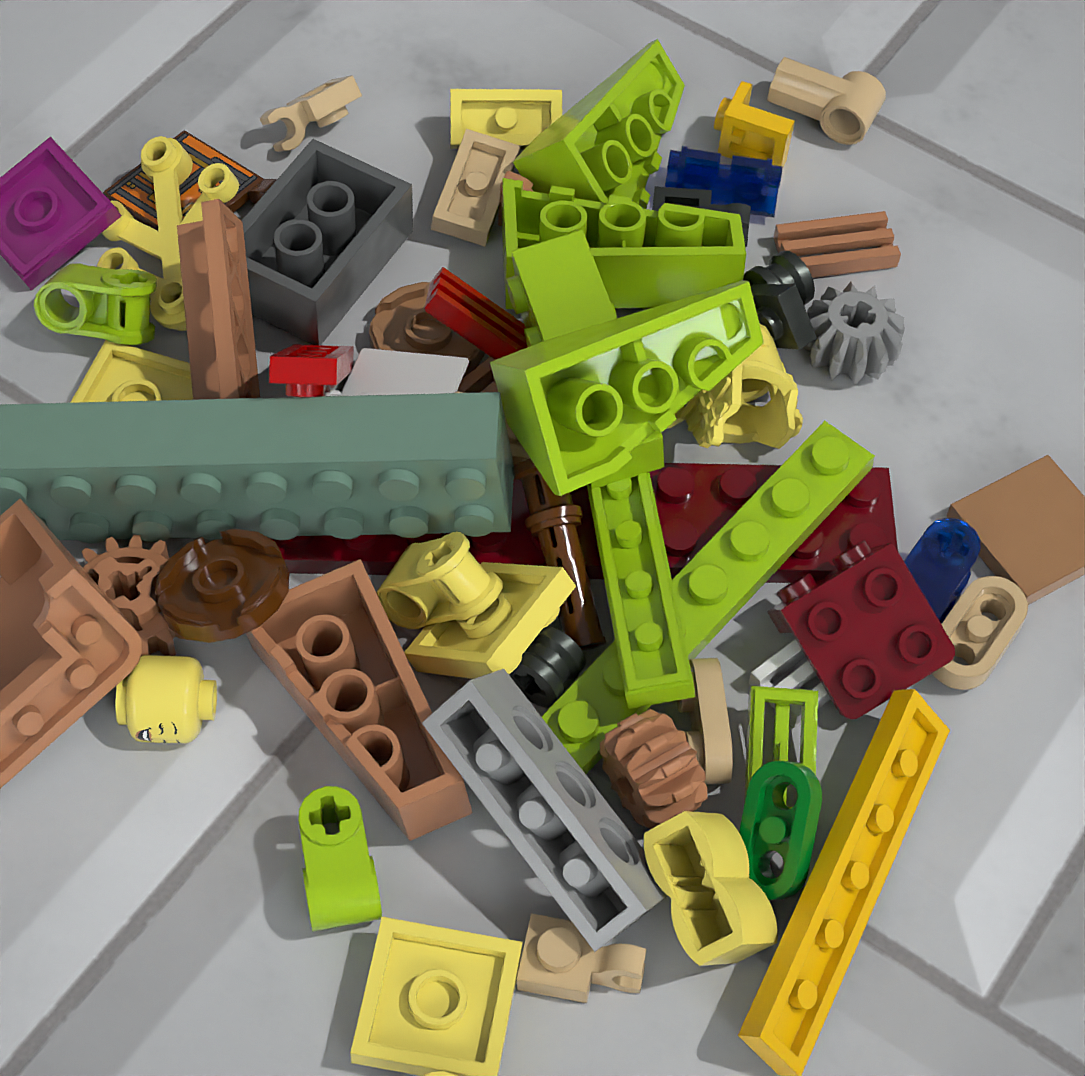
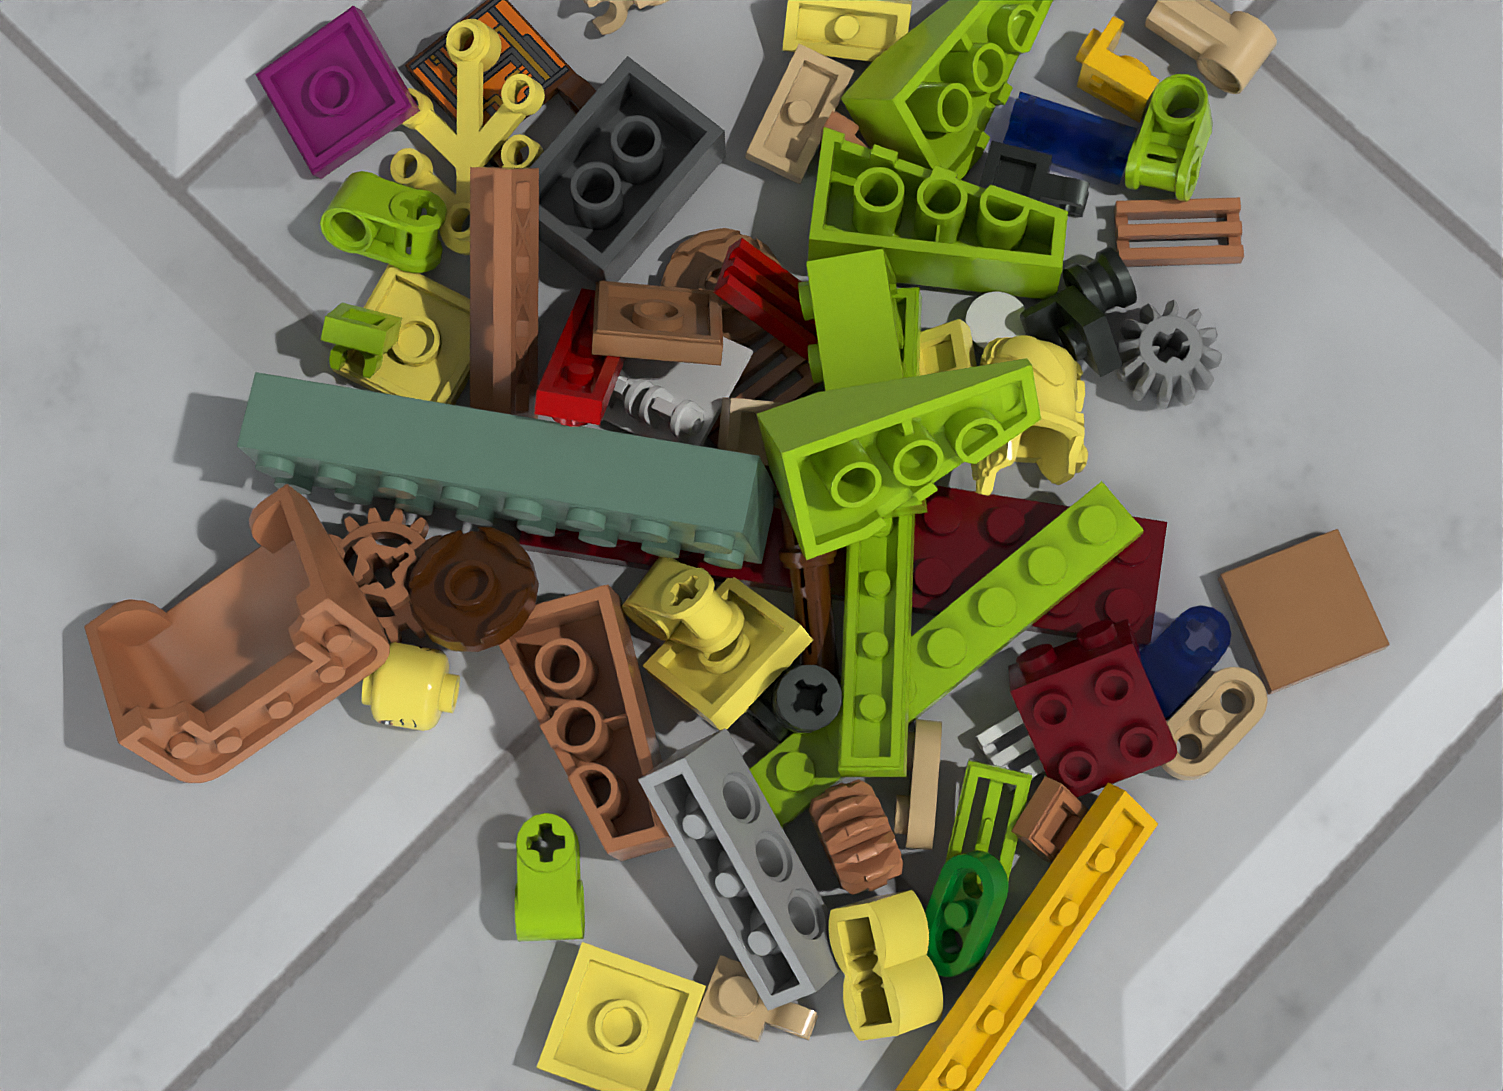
camera: 15 degrees right, 20 degrees up
(82, 384) = (360, 330): none -> lime tile
(375, 337) = (657, 323): none -> medium nougat tile
(574, 654) = (796, 705): none -> pearl dark grey wheel
(814, 167) = (1171, 149): none -> lime piece
(843, 735) = (1049, 819): none -> nougat tile

